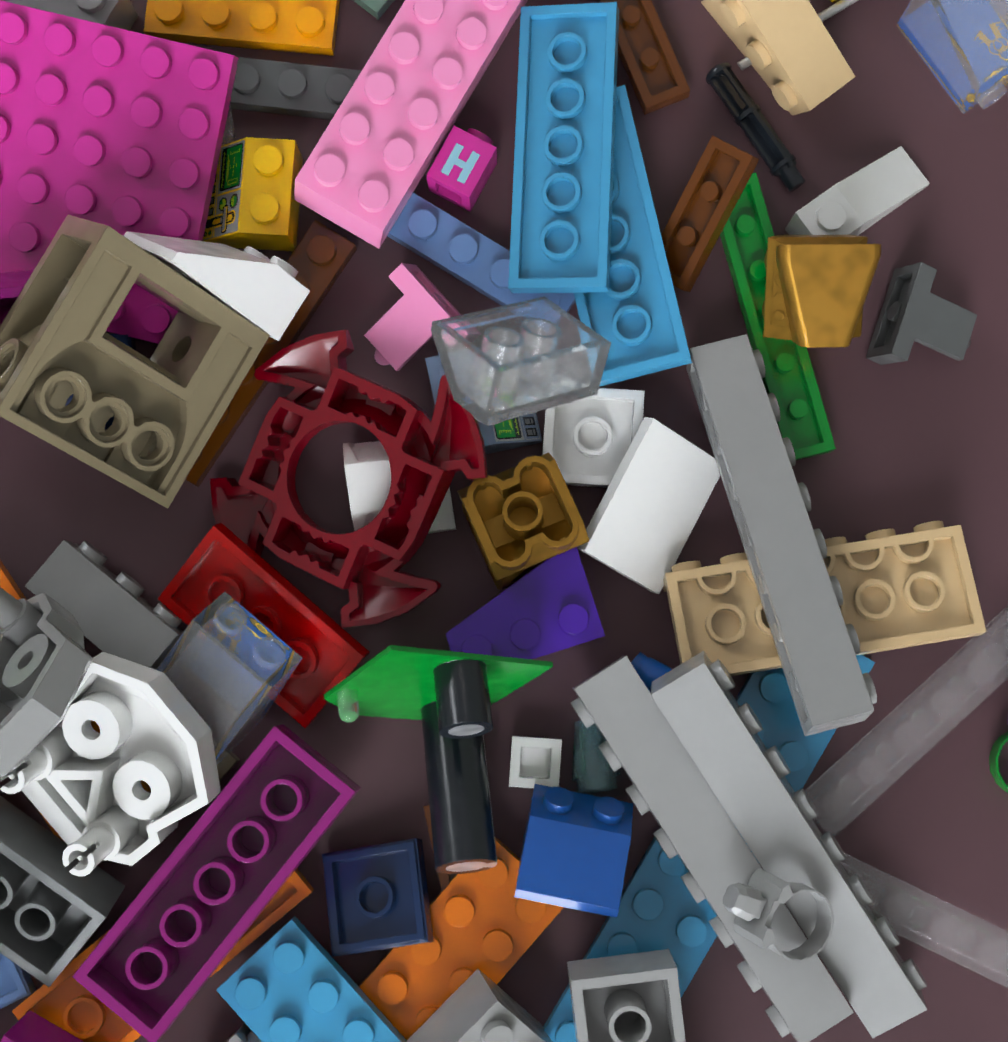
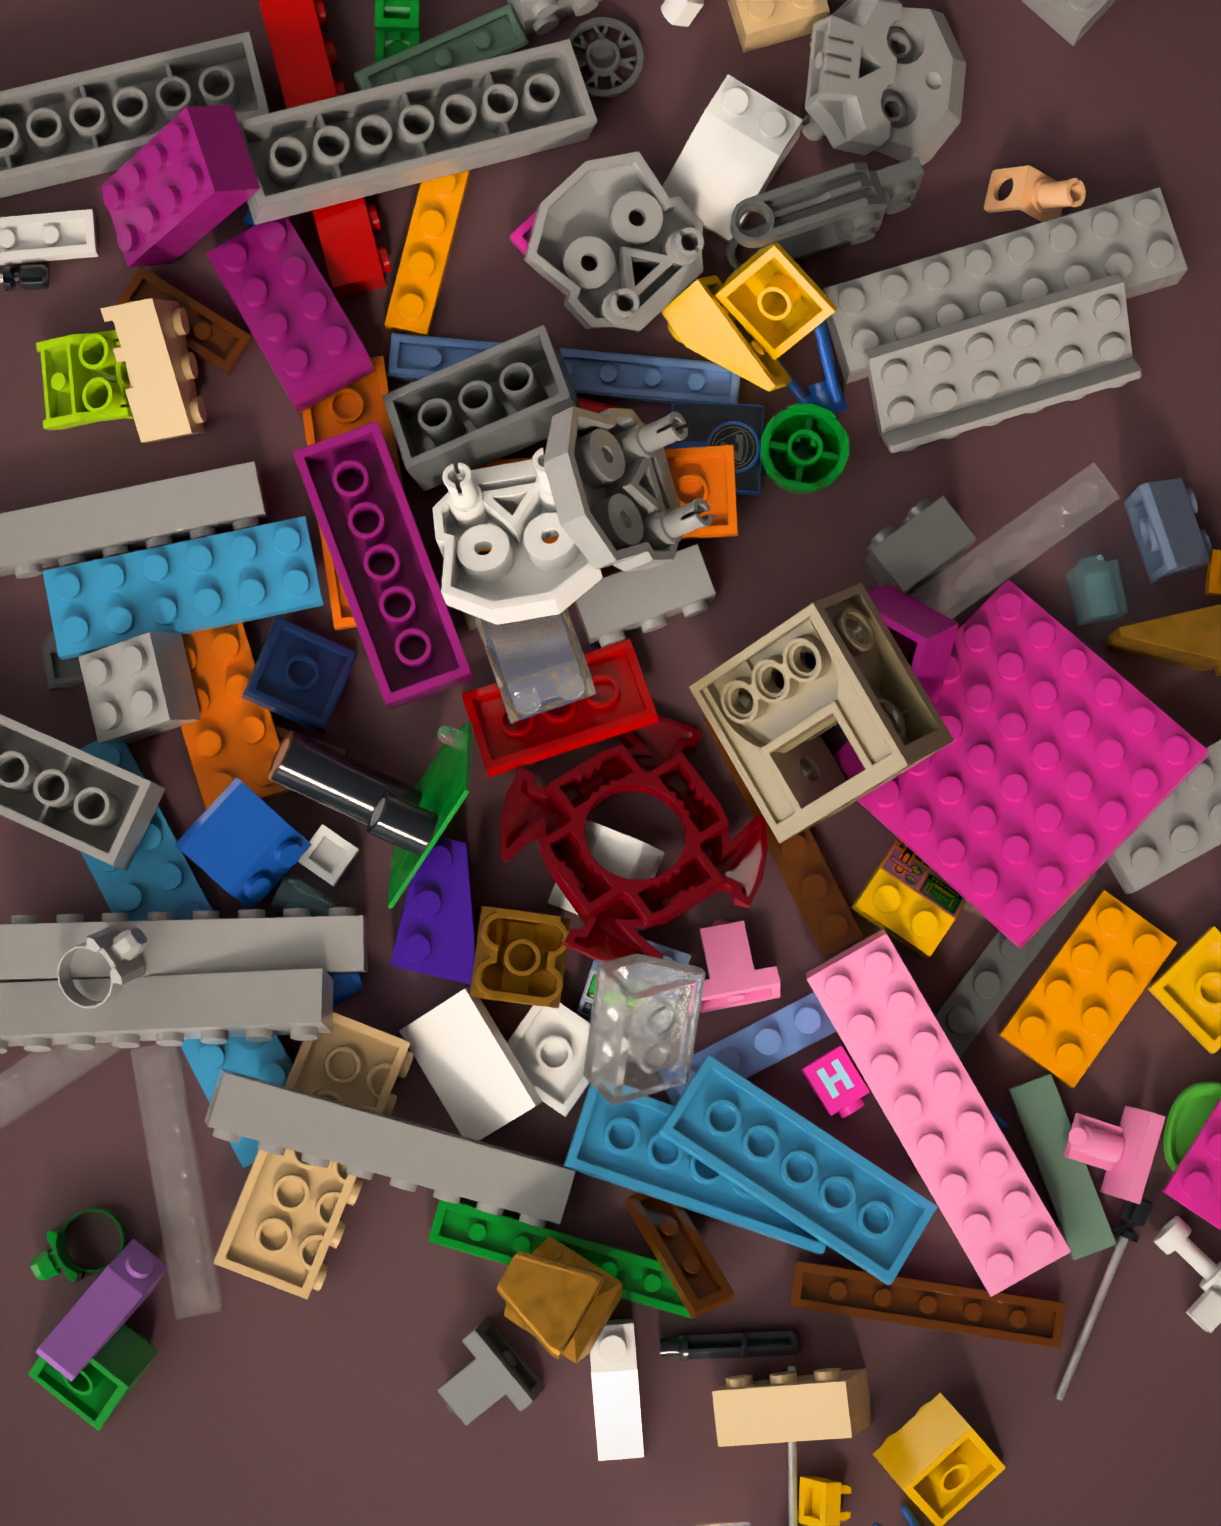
camera: 115 degrees right, 0 degrees up
(242, 280) = (845, 839): white slope -> none

